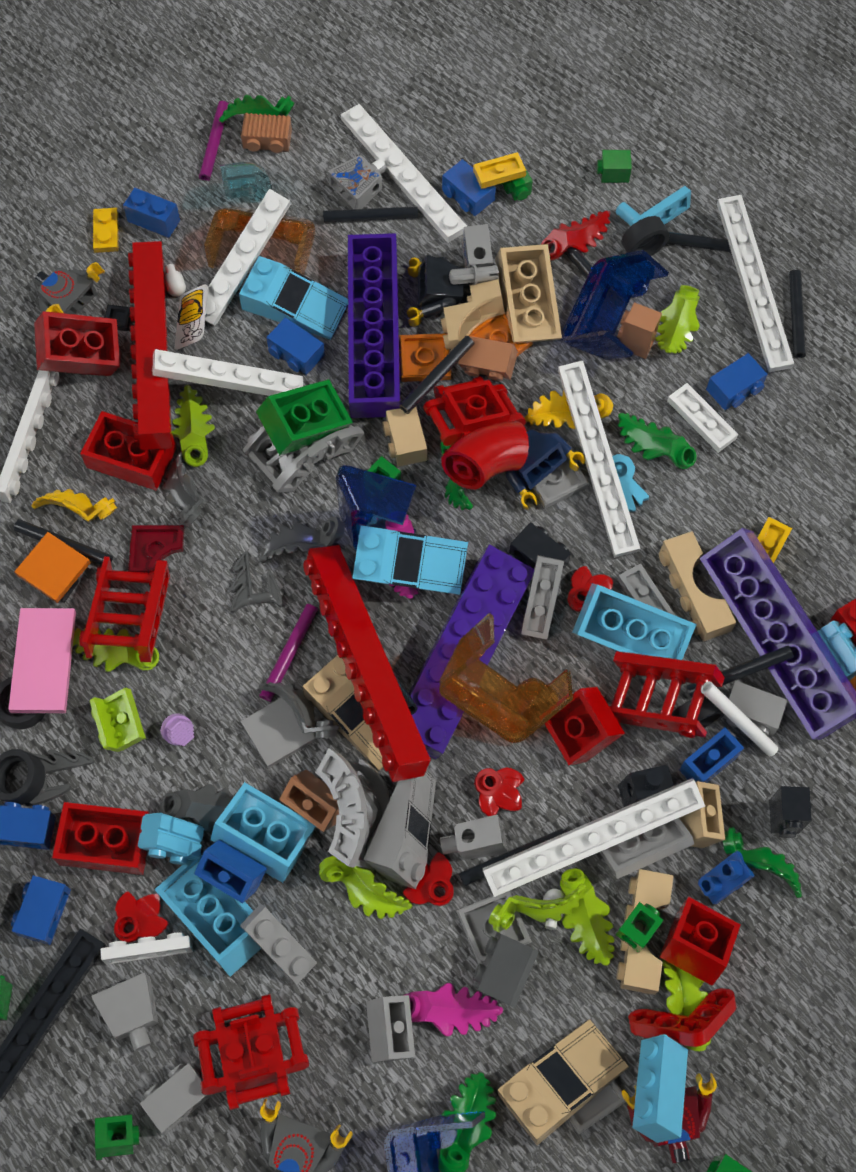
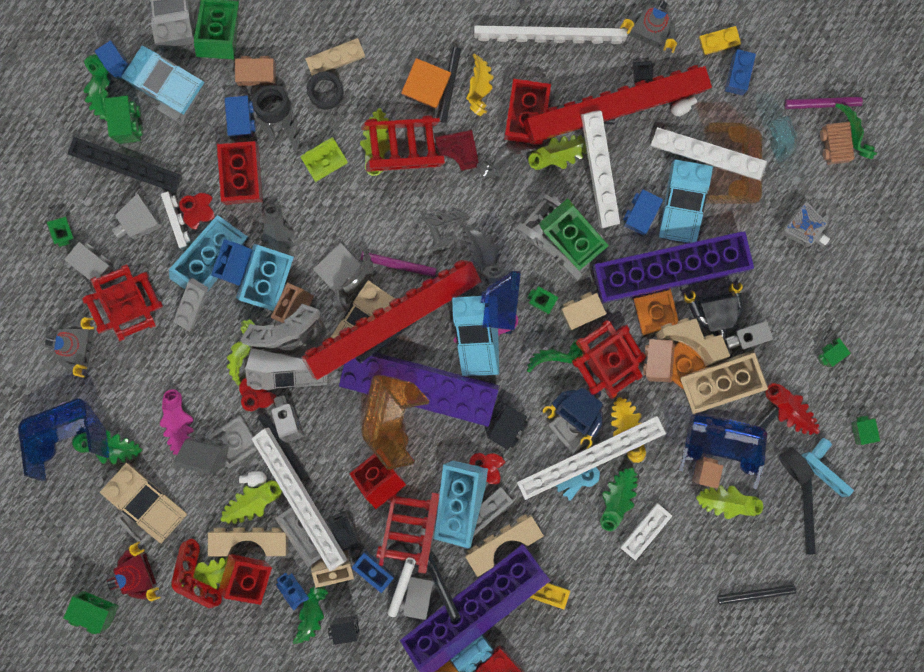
camera: 80 degrees right, 20 degrees up
(40, 910) = (187, 145): blue brick -> none
(42, 660) = (353, 97): bright pink tile -> none
(76, 344) = (603, 50): red brick -> none
(170, 837) = (246, 217): medium azure brick -> none
(177, 729) = (325, 202): lavender piece -> none
(191, 317) = (652, 127): sticker -> none
(370, 214) = (778, 243): black piece -> none
(390, 1029) = (153, 387): light grey brick -> none
(404, 173) = (825, 260): white plate -> none
(436, 374) = (633, 325): black piece -> none
(463, 186) = (818, 316): blue brick -> none
(473, 274) = (728, 336): light grey axle -> none
(486, 453) = (566, 376): red brick -> none
(499, 170) = (832, 338): yellow plate -> none
(503, 791) = (324, 431): red plate -> none
(540, 910) = (237, 447): lime plant -> none
(542, 597) = (470, 435): light grey plate -> none
(633, 937) = (236, 540): green brick -> none
(660, 1088) = (142, 565): medium azure brick -> none
(736, 382) = (682, 554): blue brick -> none
(755, 284) = (775, 557): white plate -> none

